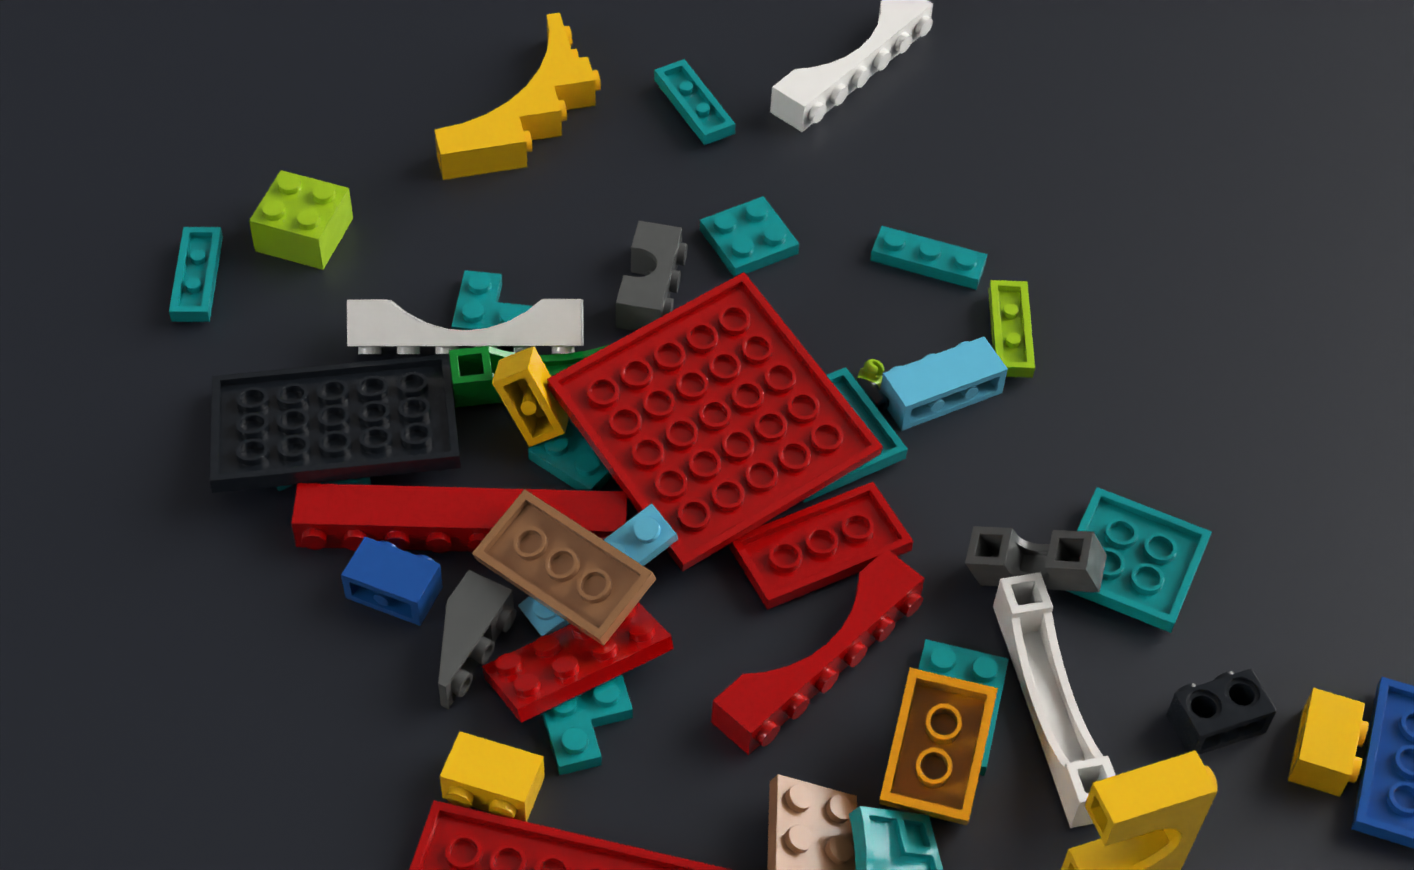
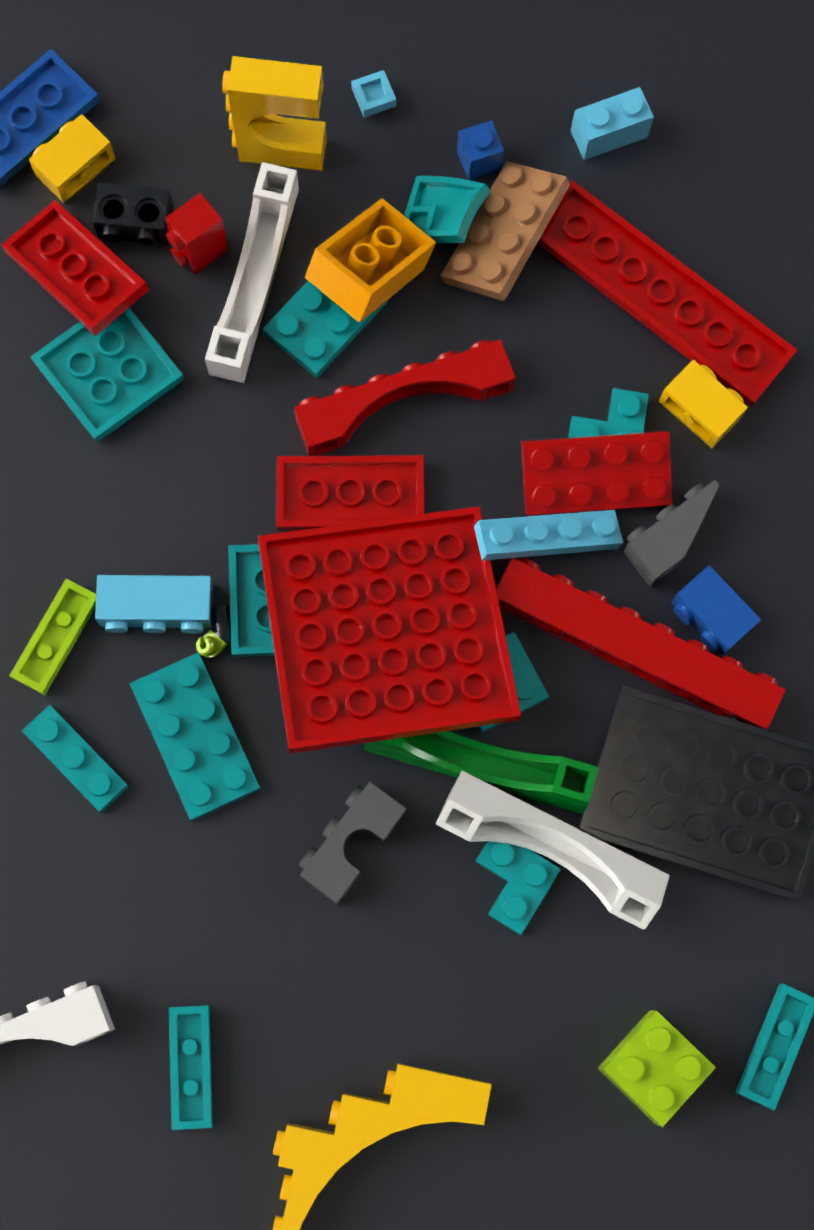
camera: 155 degrees left, 25 degrees up
(524, 391) = (541, 727): yellow brick -> none
(564, 567) = (583, 532): medium nougat plate -> none
(749, 236) = (229, 861): teal plate -> none
(838, 308) = (195, 736): none -> teal plate
(1068, 563) = (179, 360): dark grey arch -> none
(1137, 701) = (196, 234): none -> red brick
(1235, 626) = (75, 267): none -> red plate

